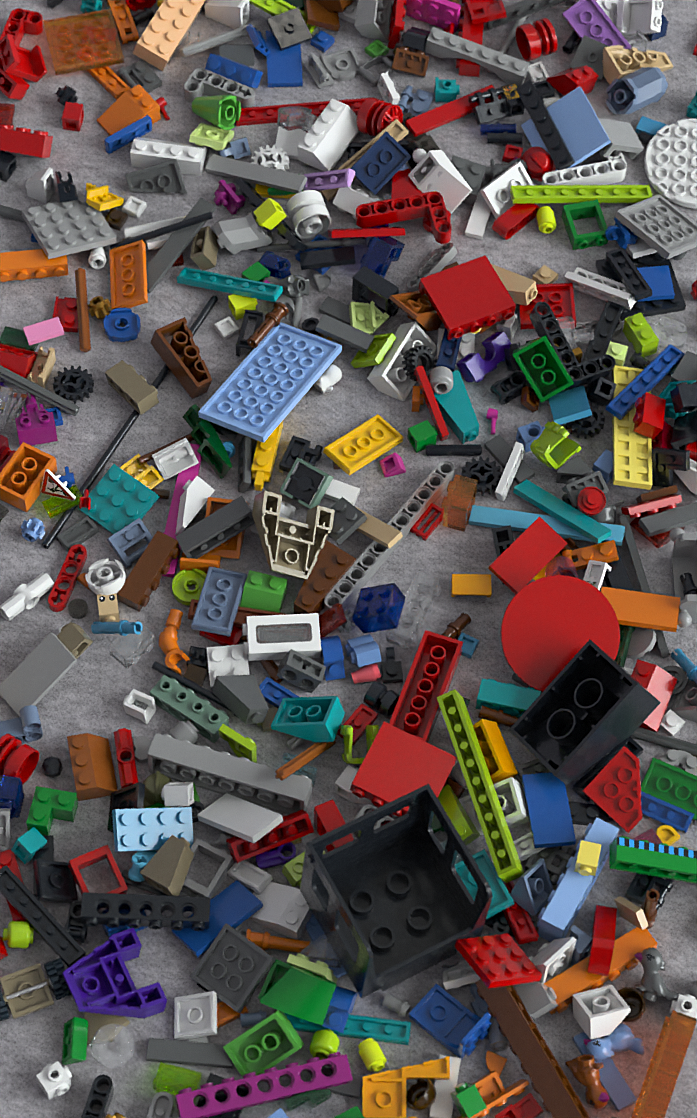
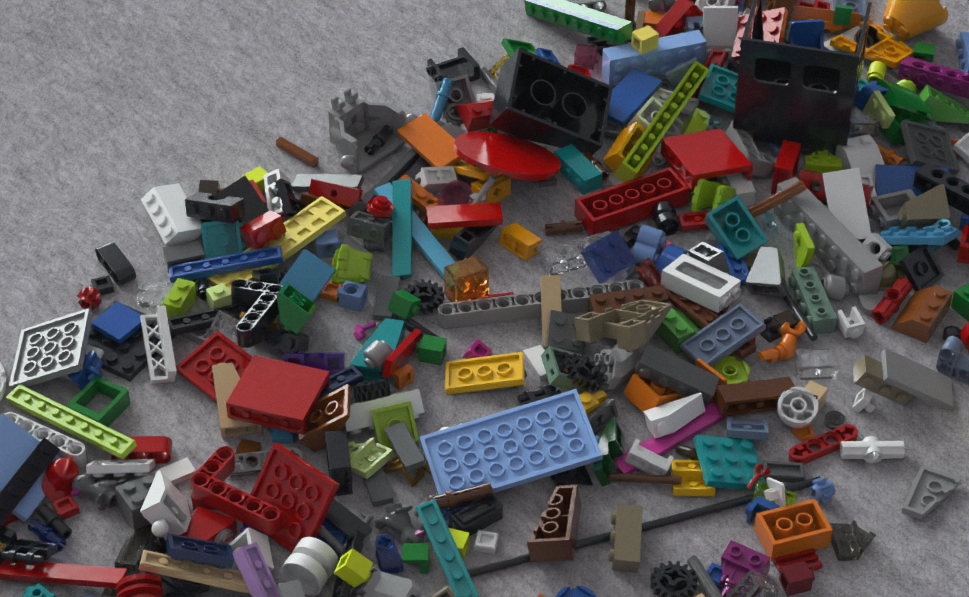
camera: 135 degrees left, 15 degrees down
(122, 627) = (822, 368): dark azure pin -> none
(226, 661) = (757, 304): white plate -> none
(287, 470) = (584, 372): none -> black gear
(309, 325) = (415, 490): black tile -> none
(469, 645) = (566, 215): dark azure tile -> none
(479, 446) = (404, 304): none -> green brick
(507, 388) = (321, 335): black piece -> none
(510, 471) = (400, 278): white tile -> none
(529, 399) = (319, 320): reddish brown plate -> none
(545, 275) = (182, 396): tan plate -> none
(546, 219) = (125, 426): neon yellow brick -> none
(628, 274) = (132, 329): black plate -> none
(667, 834) = (565, 58): yellow tile -> none

